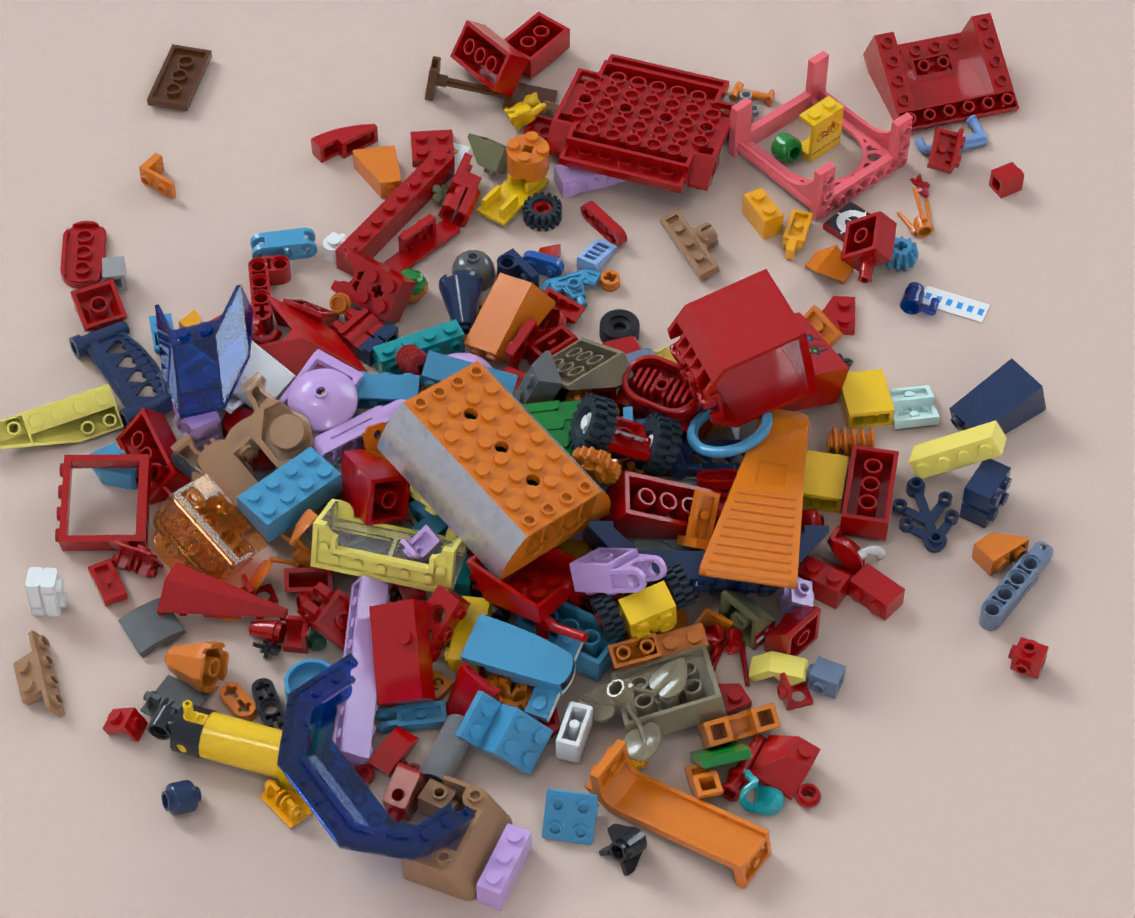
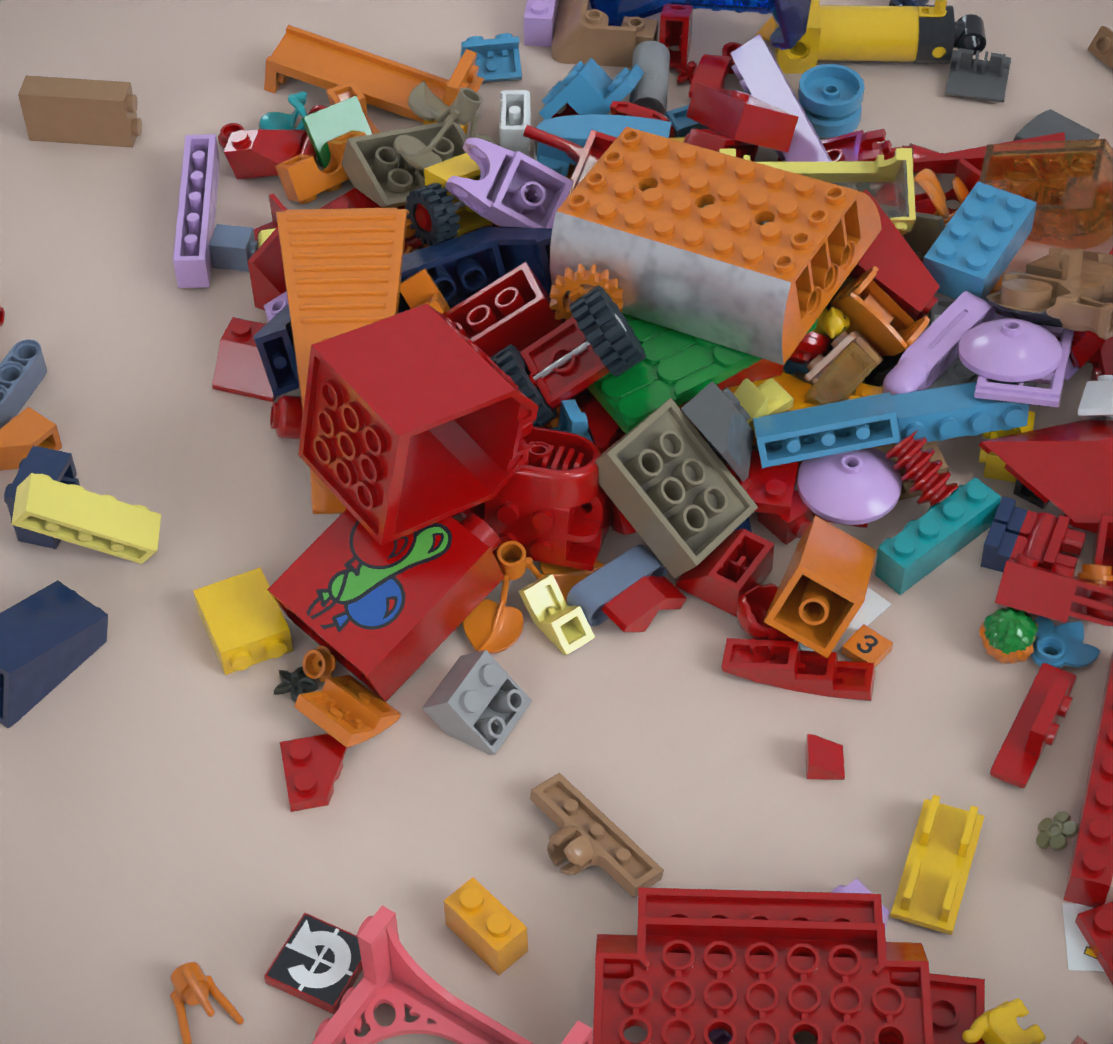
camera: 165 degrees right, 0 degrees up
(126, 721) = (1017, 43): red bracket -> none
(199, 664) = (976, 98): orange cone -> none
(242, 699) = (909, 93): orange beam -> none
(268, 648) = (910, 138): black plant -> none
(272, 700) = (885, 104): black beam -> none
(461, 297) = (918, 624): dark blue cone -> none
(464, 188) = (1021, 828): red plate -> none
(476, 262) = (928, 696): dark grey cylinder -> none
(489, 154) = (1019, 940): olive slope -> none
(514, 265) = (859, 711): dark blue plate -> none
(519, 346) = (783, 543): red wing -> none
(528, 157) = (936, 883): orange brick -> none
(542, 220) = (865, 856): black bush -> none
(544, 264) = (836, 728): blue plate -> none
(573, 284) = (759, 709): dark azure piece -> none
(585, 260) = (747, 756): light blue slope -> none
(603, 223) = (757, 839): red beam -> none
(610, 275) = (703, 749): orange bush -> none
(618, 318) = (655, 668): black tyre -> none
(626, 846) = (419, 44): black brick -> none
(796, 232) = (418, 911): light orange hinge -> none
(824, 481) = (279, 484): yellow brick -> none
(829, 263) = (349, 851): orange slope -> none
(845, 441) = (253, 542): orange piece -> none
(849, 552) = (230, 391): red hat -> none
(849, 711) = (196, 211): none -> lavender brick
(868, 243) = (278, 874): red brick -> none
(869, 492) = (213, 470): red brick -> none
(876, 592) = (183, 355): red brick -> none
(904, 254) = (224, 907): dark azure gear -> none
(913, 300) = (189, 821): clear blue piece -> none
(913, 407) = (169, 636): light aqua slope -> none
(933, 538) = (116, 447): dark blue plant -> none
(935, 829) = (80, 111): none -> medium nougat brick
(957, 304) = (120, 850): white sticker -> none

